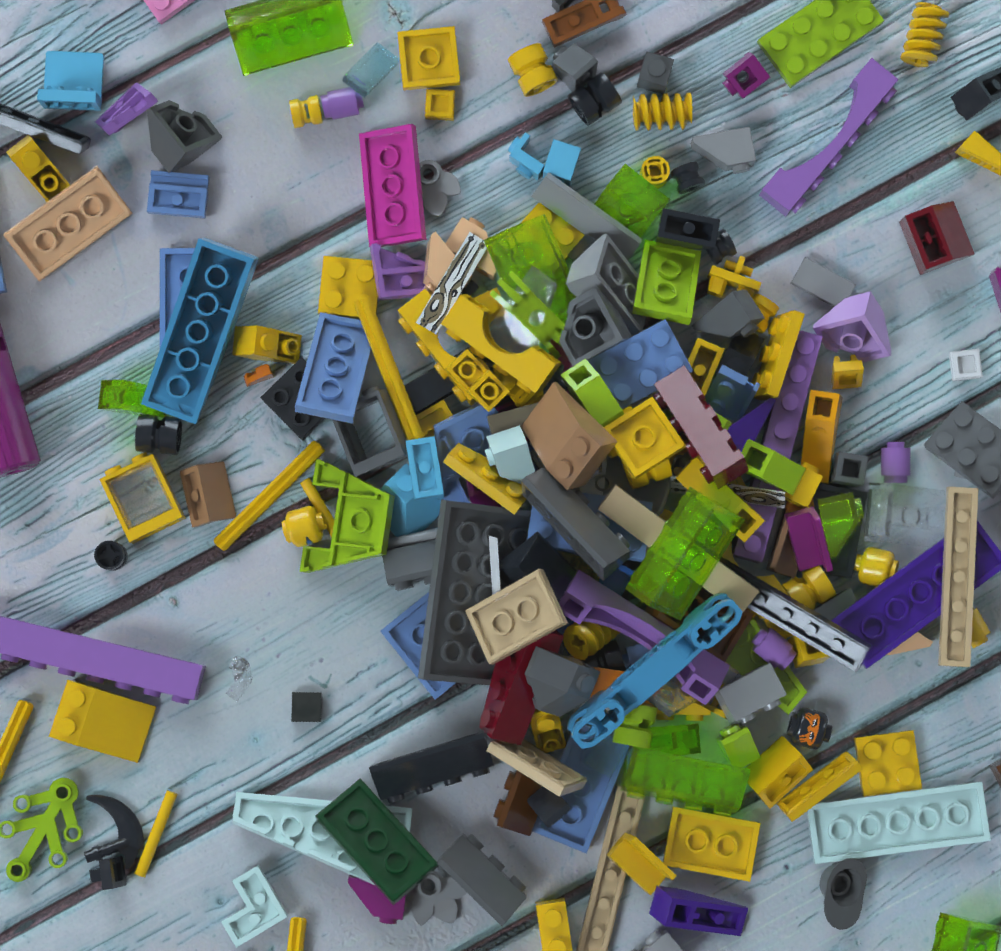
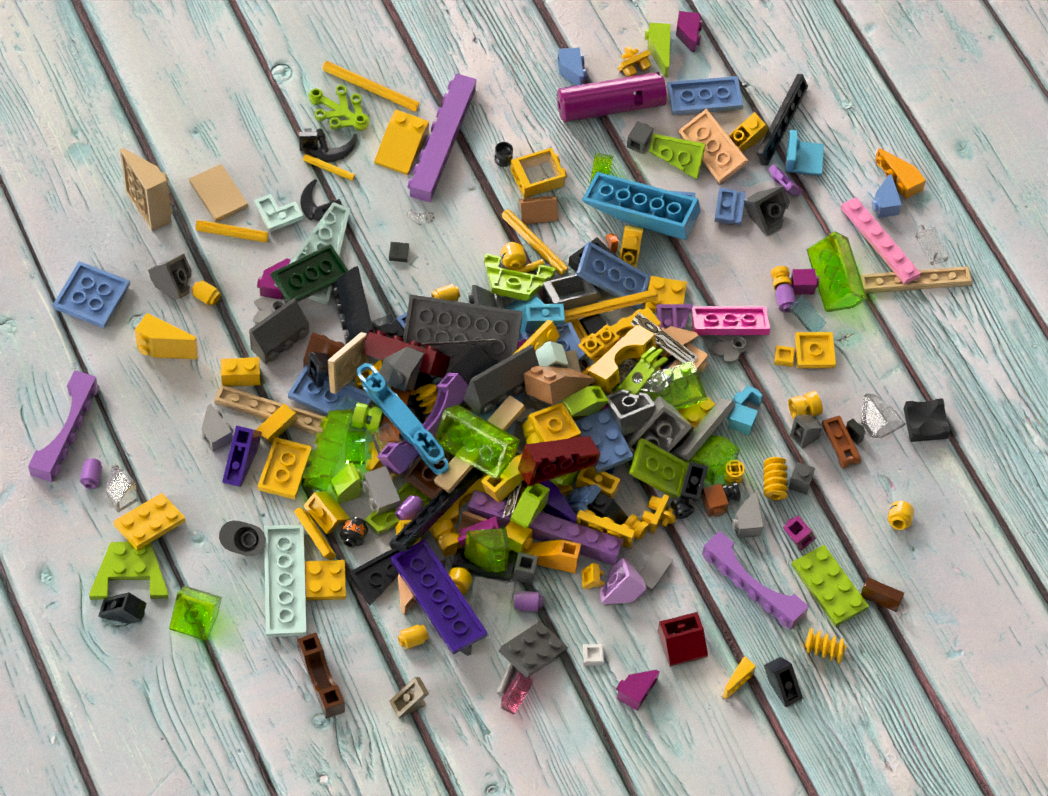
camera: 90 degrees right, 25 degrees down
(58, 340) = (639, 137): none -> dark grey brick
(84, 276) = (678, 152): none -> lime wing
(158, 434) = (577, 182): black wheel -> none
(235, 857) = (308, 206): none -> black piece
(308, 75) = (804, 281): none -> magenta brick
(395, 625) = (447, 293): none -> yellow brick
(455, 710) = (388, 325): none -> black slope
(516, 616) = (444, 343): tan tile -> none
(595, 98) = (783, 438): black wheel -> none
(705, 198) = (714, 500): none -> dark orange brick
(732, 316) = (634, 502): dark grey slope -> none
(876, 690) = (375, 576): none -> black wing
(958, 577) = (447, 613): tan plate -> none

